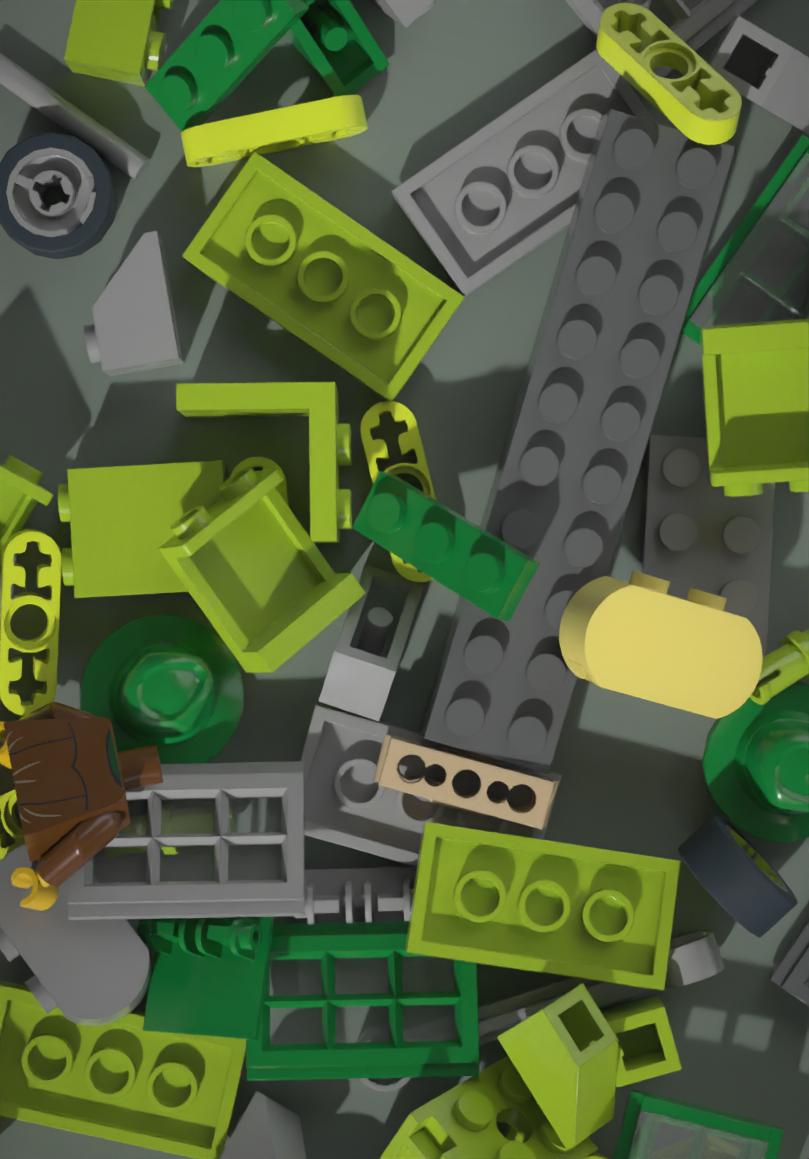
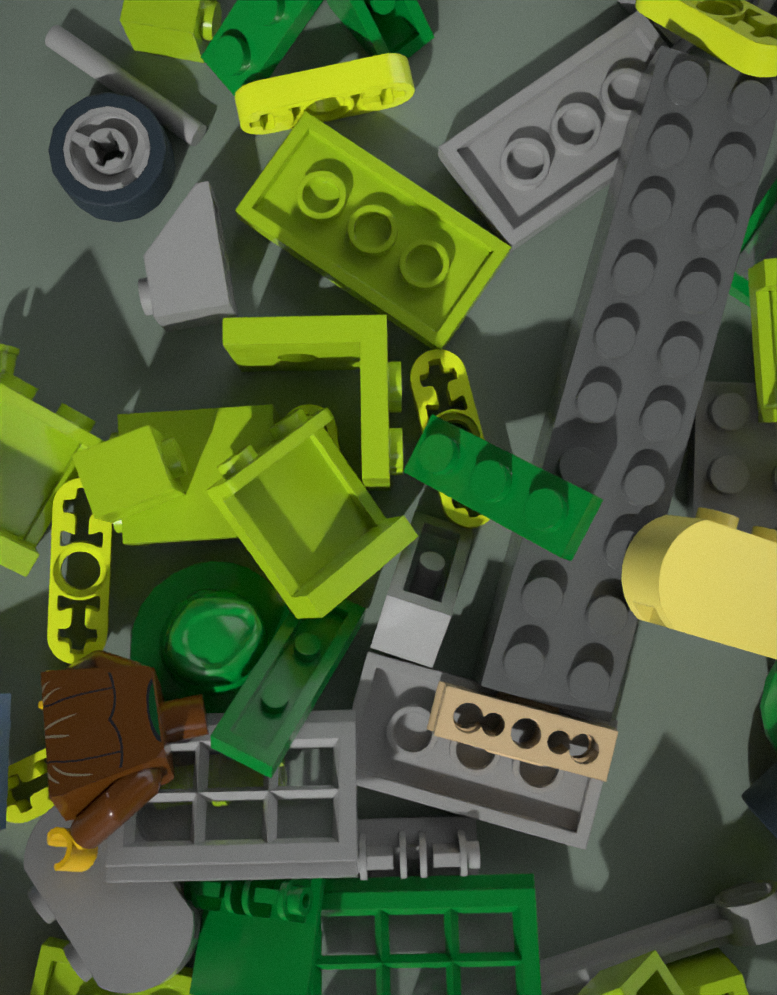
camera: 10 degrees right, 5 degrees down
(87, 531) = (131, 473): none -> lime brick
(237, 737) = (285, 687): none -> green plate
(543, 906) = (607, 864): lime plate -> none

